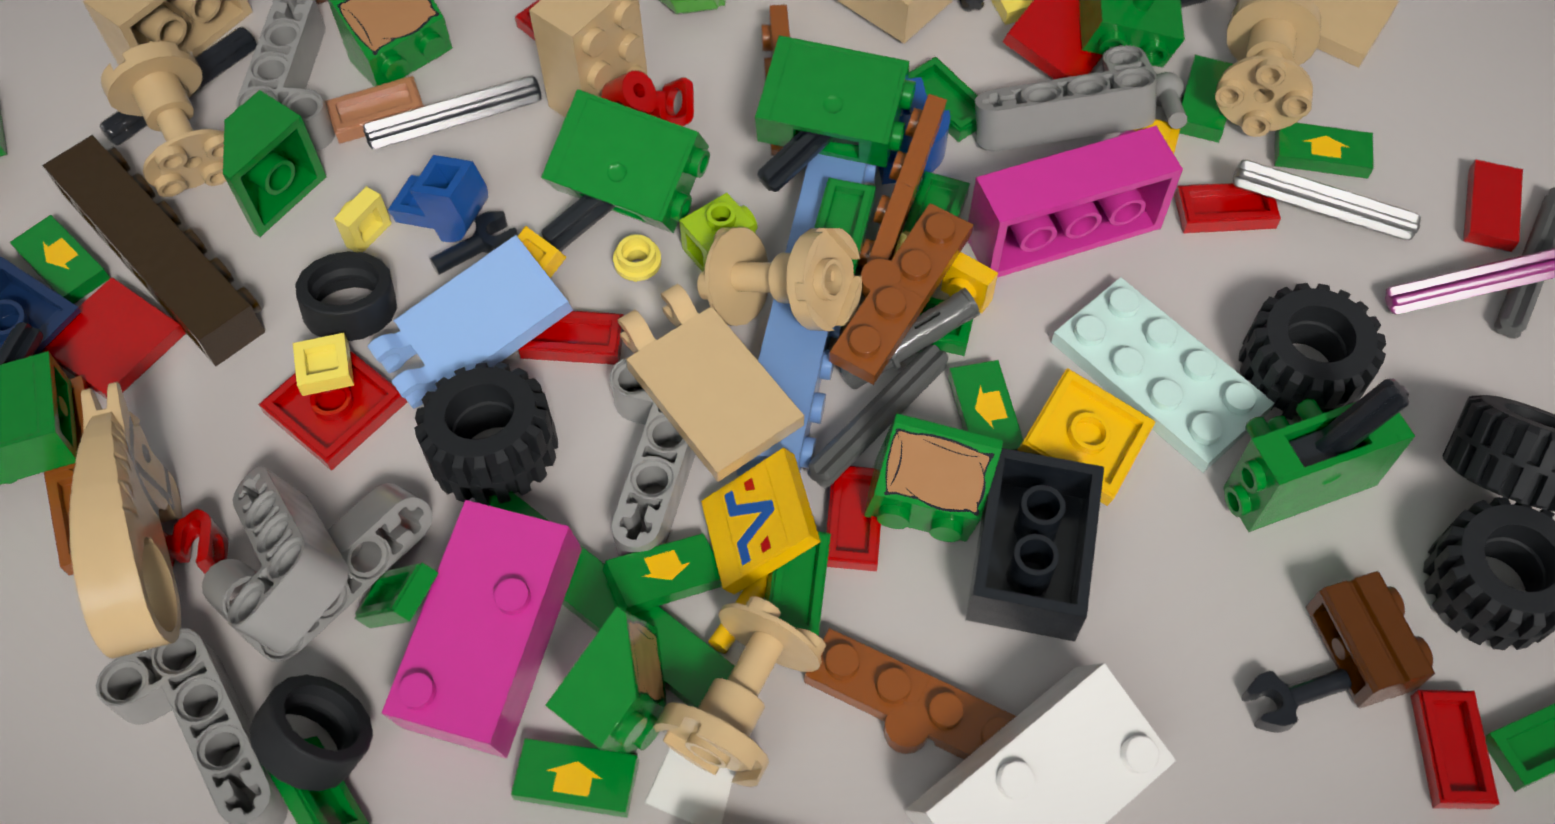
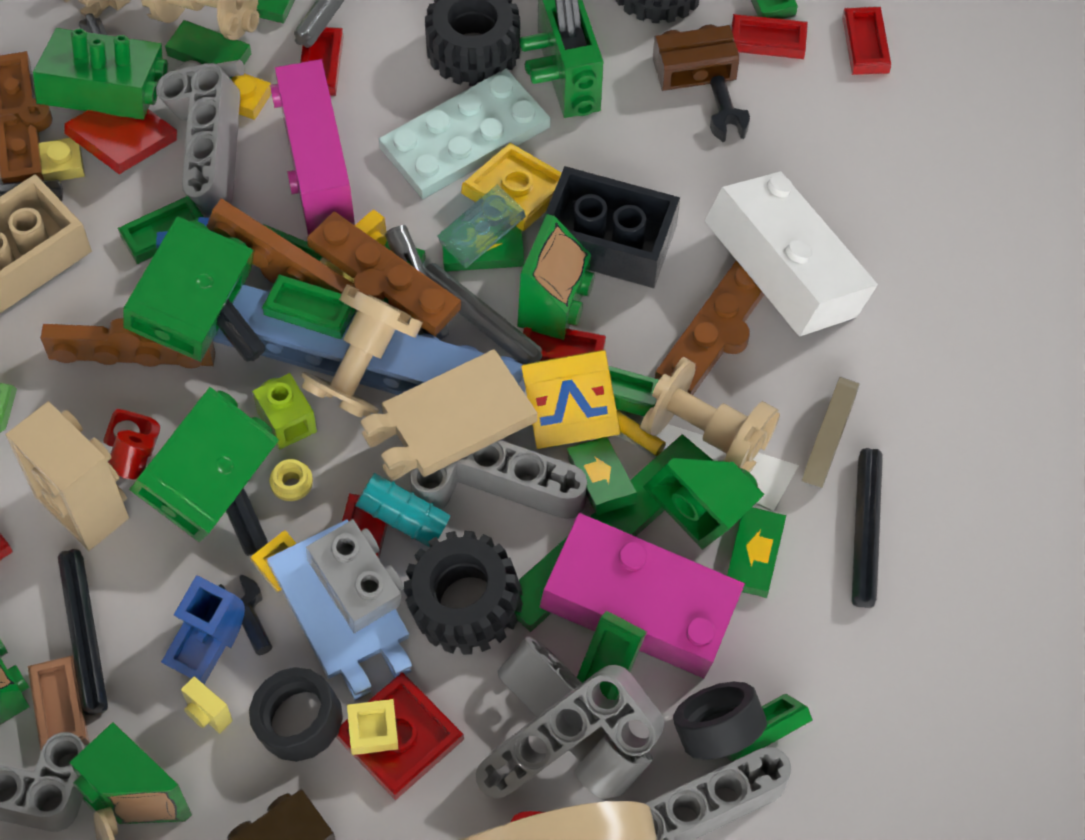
camera: 85 degrees left, 0 degrees up
(488, 310) = (354, 575): none -> light grey brick
(591, 361) = (402, 510): none -> teal axle
(1003, 394) = (481, 226): none -> clear light blue plate

